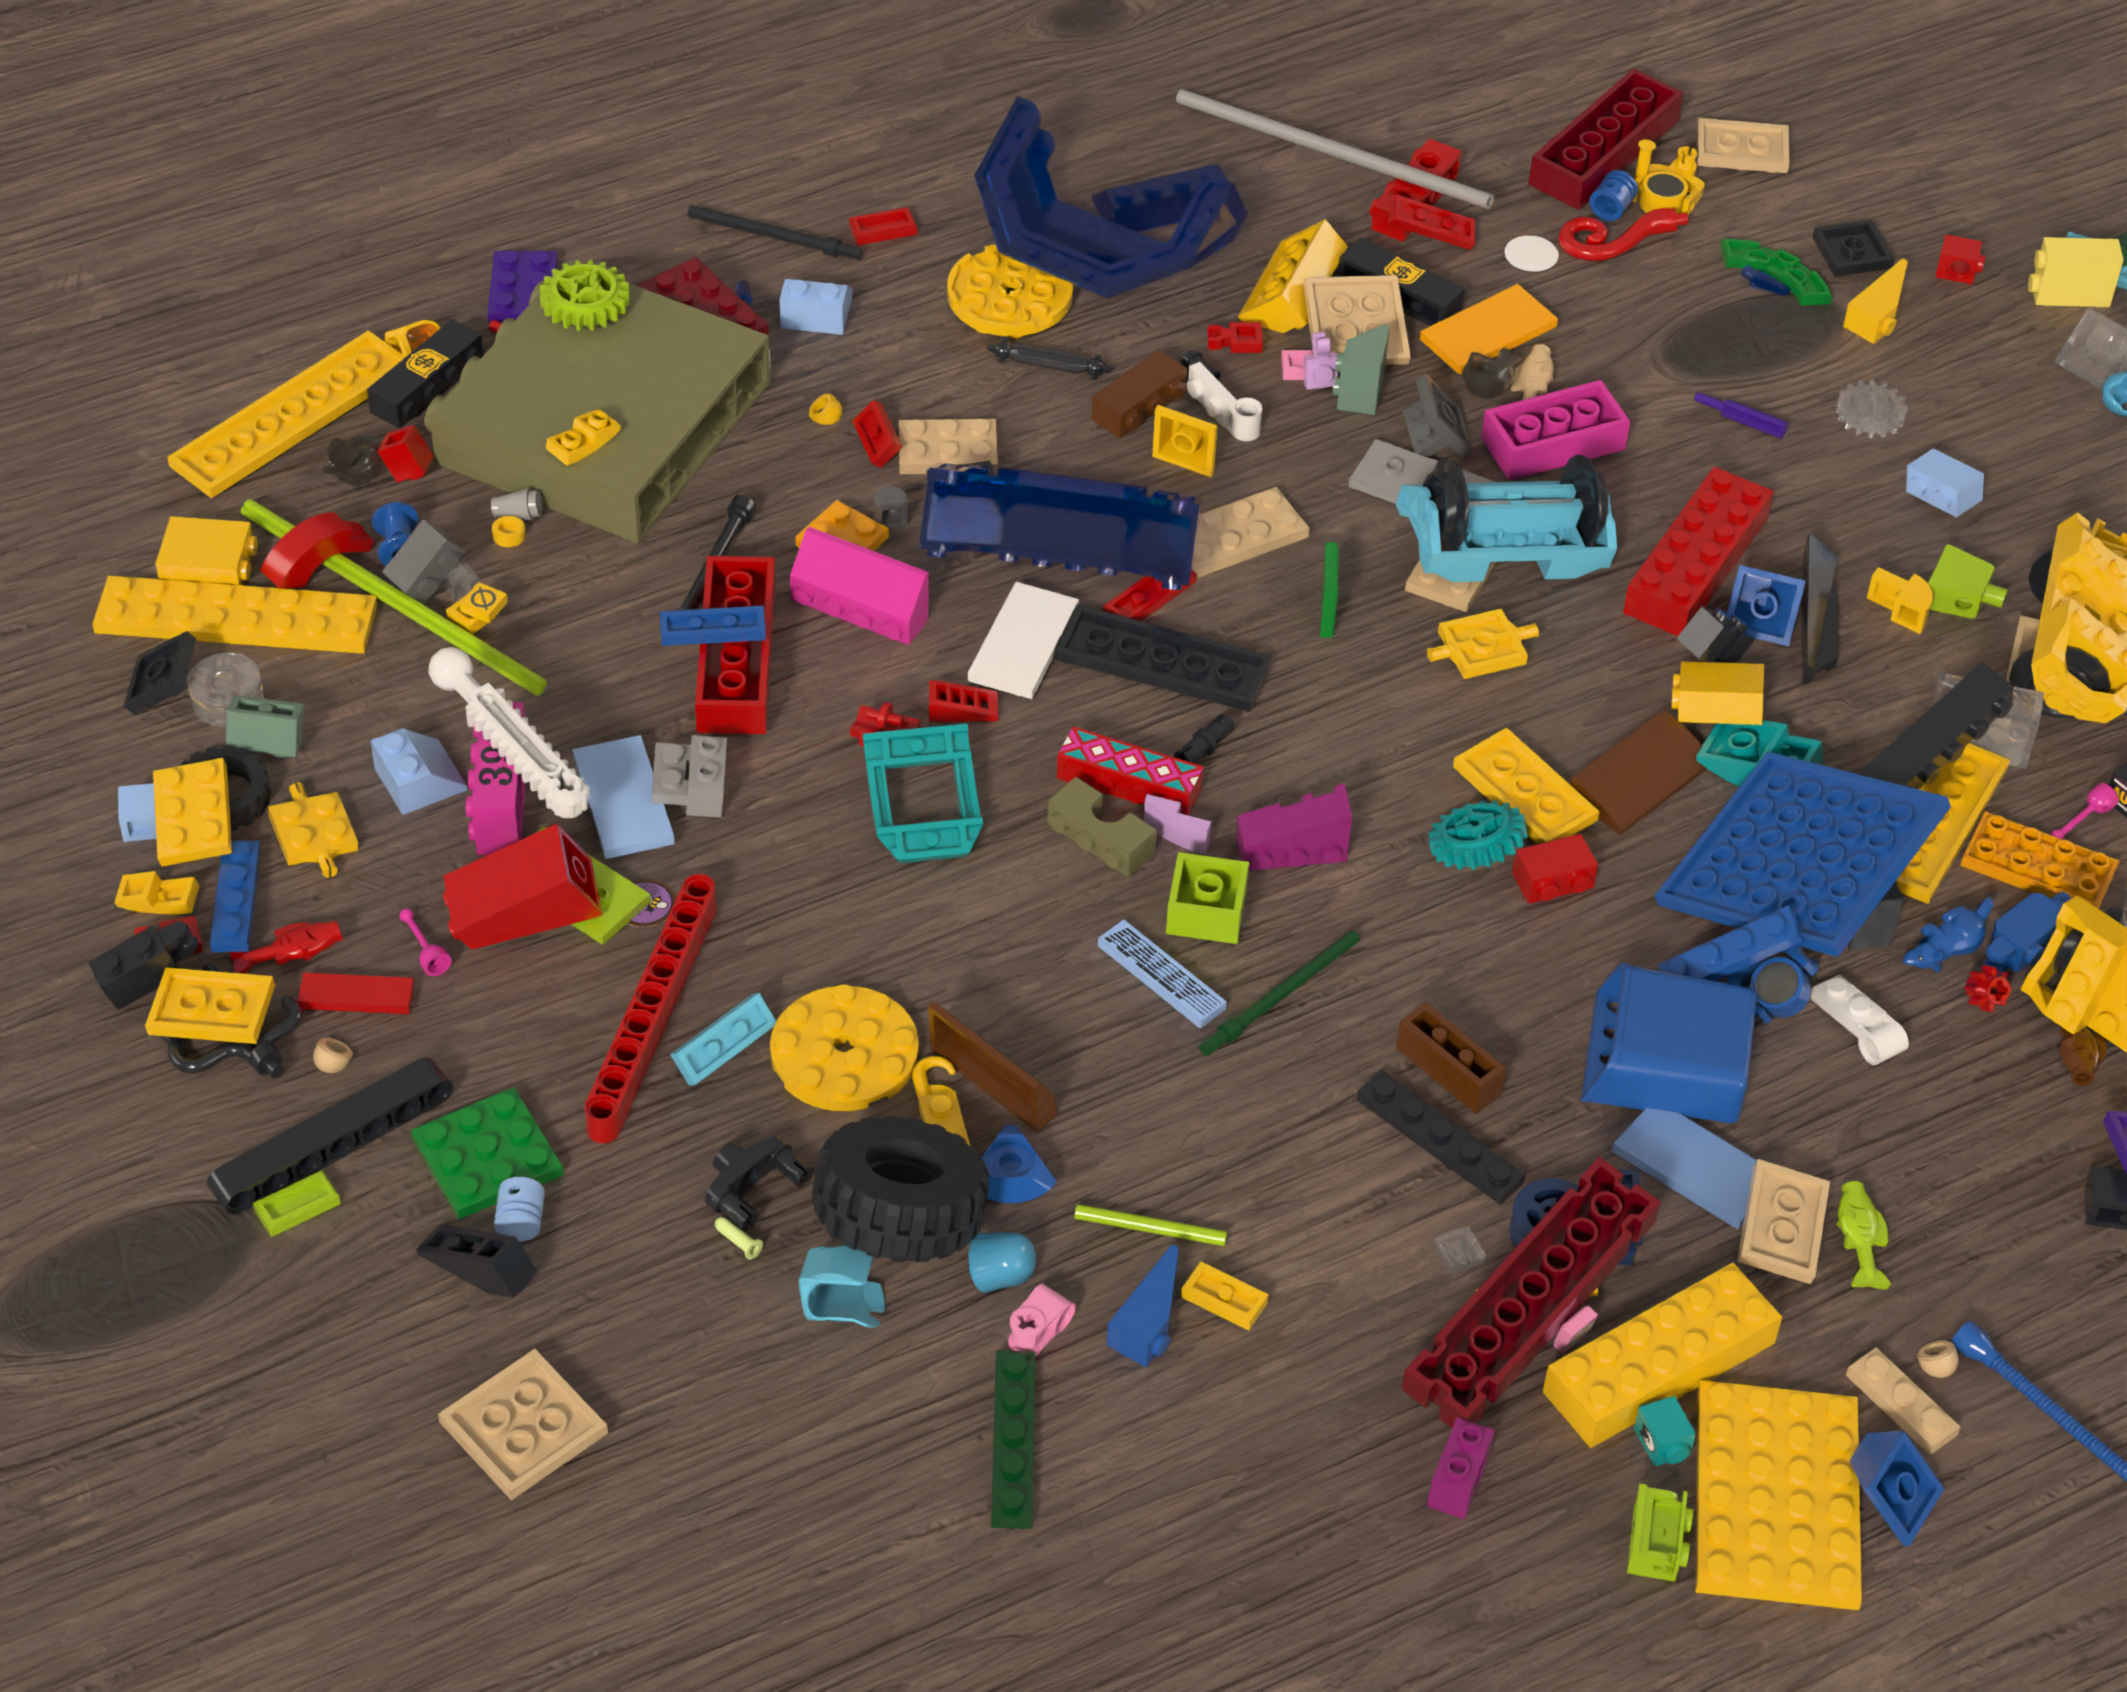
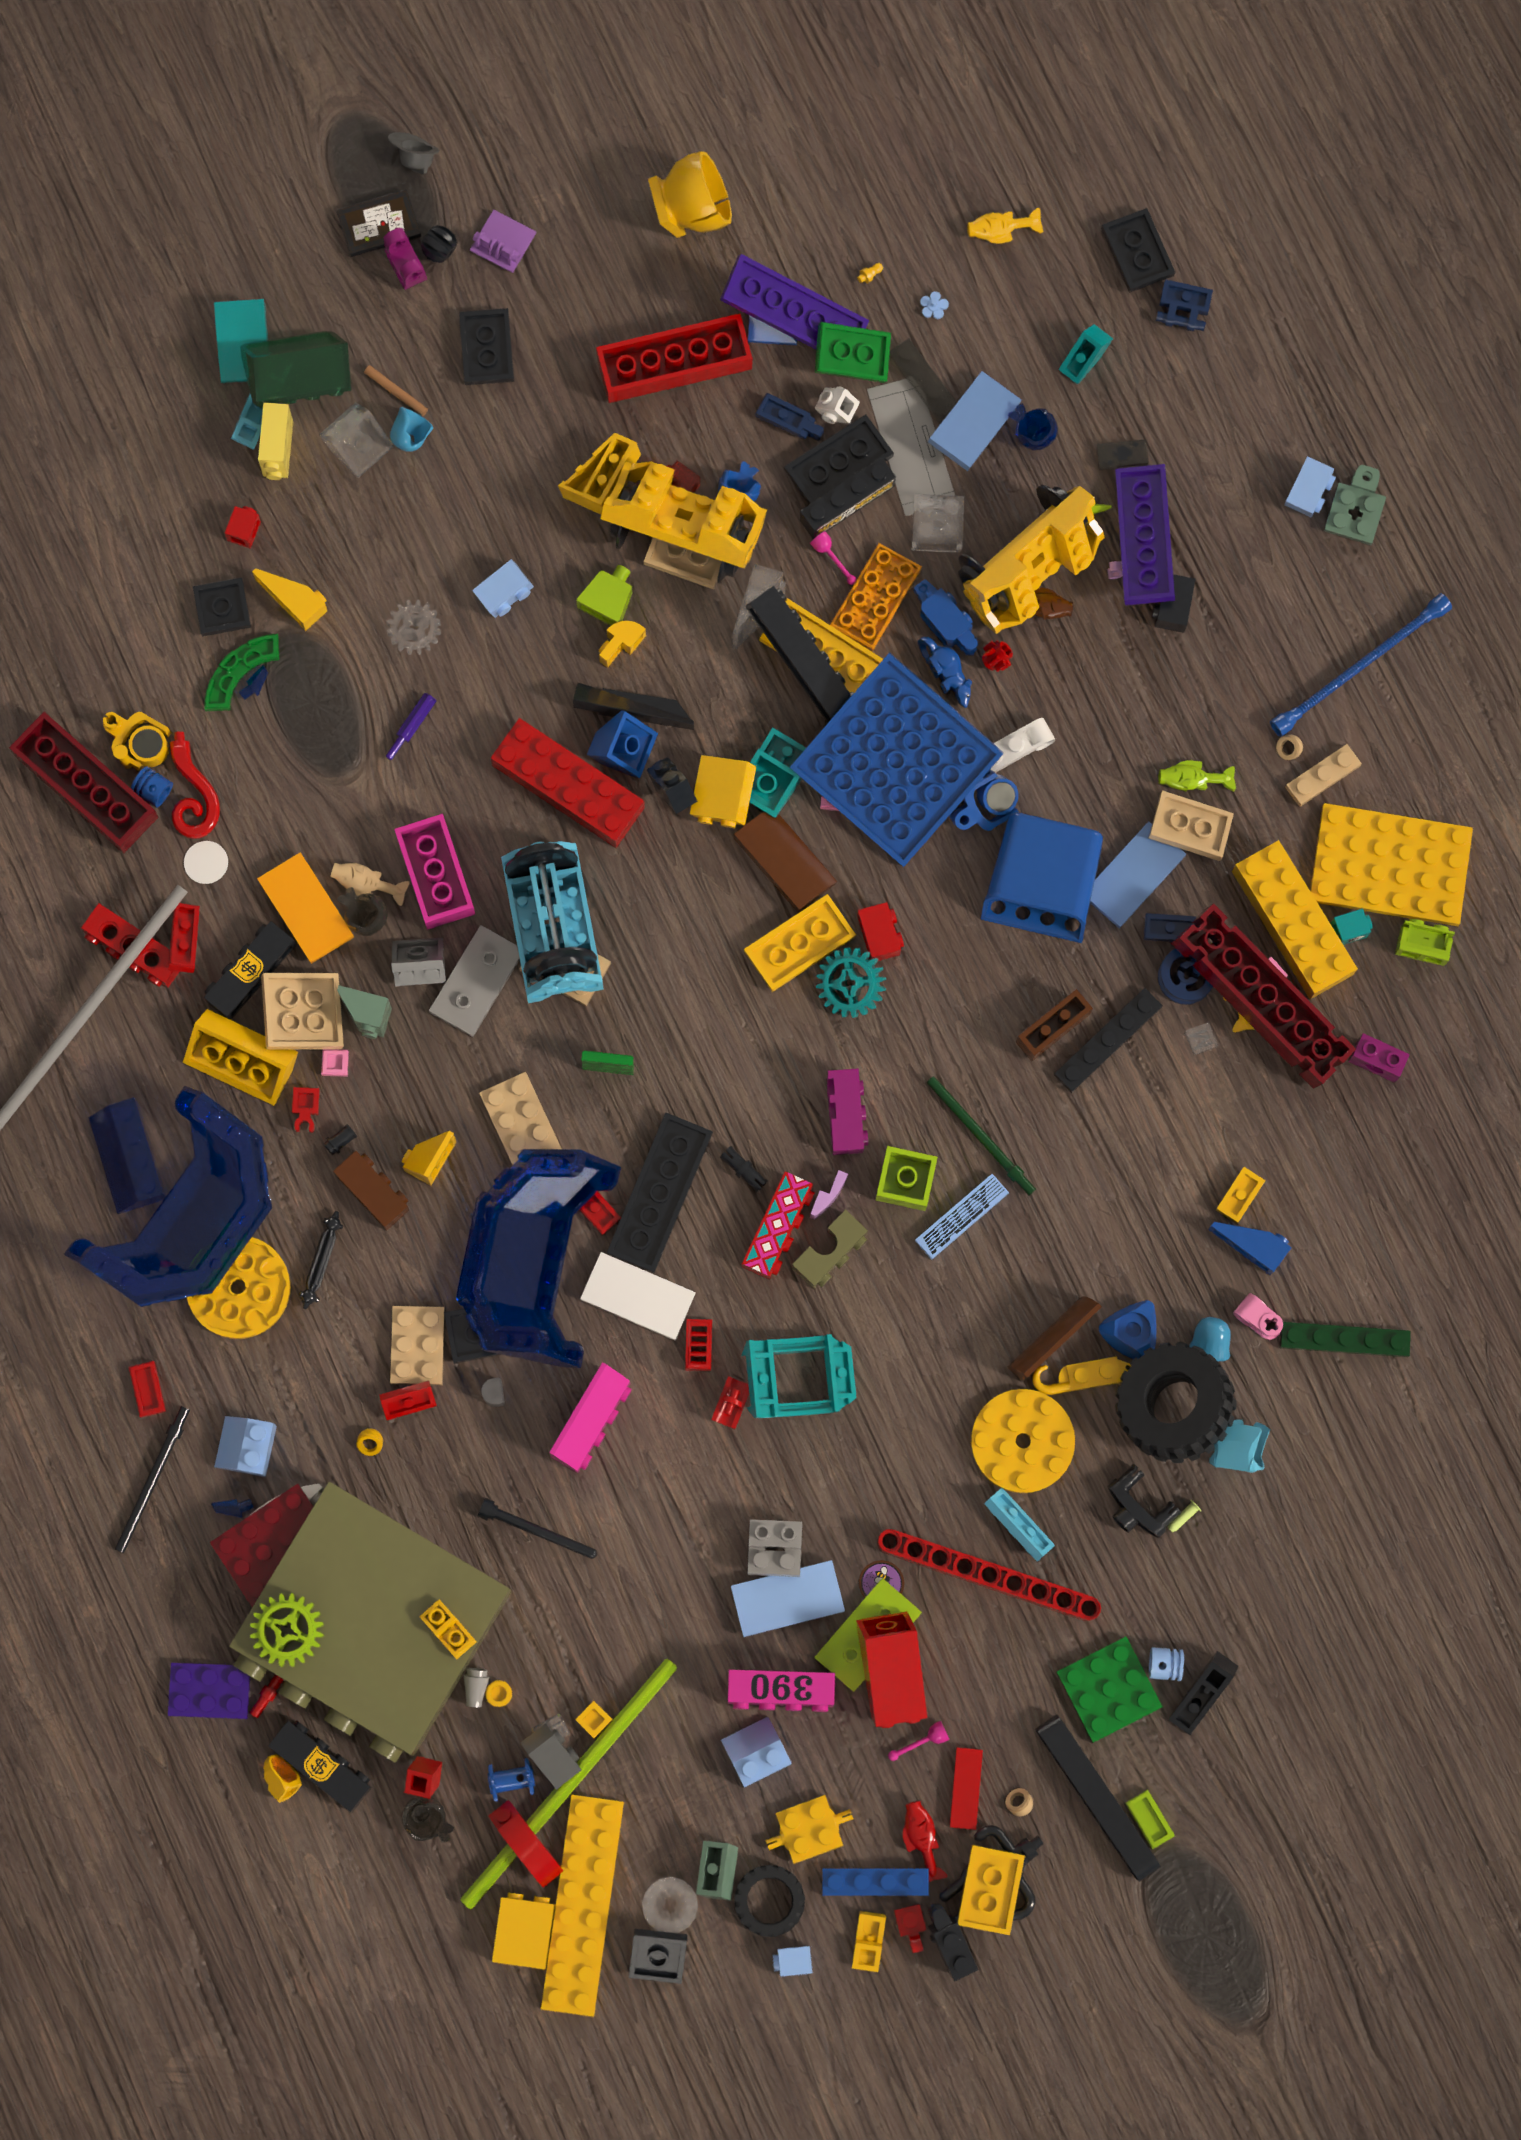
camera: 90 degrees left, 30 degrees up
(192, 812) = (805, 1918): yellow plate -> none
(284, 415) = (359, 1875): yellow plate -> none
(483, 602) = (593, 1708): yellow tile -> none
(511, 734) = (707, 1722): white gear -> none
(523, 1424) = (1334, 1657): tan plate -> none
(712, 625) = (649, 1527): blue plate -> none
(736, 675) = (643, 1513): red brick -> none
(848, 525) = (516, 1431): light orange plate -> none
(1150, 1225) = (1178, 1239): lime bar -> none
(1238, 416) = (385, 1129): white plate -> none
(1319, 366) = (350, 1044): lavender plate -> none
(1483, 643) = (653, 955): yellow plate -> none
(1739, 947) = (977, 823): blue plate -> none
(1742, 145) = (88, 672): tan plate -> none
(1896, 1481) = (1392, 793): blue slope -> none

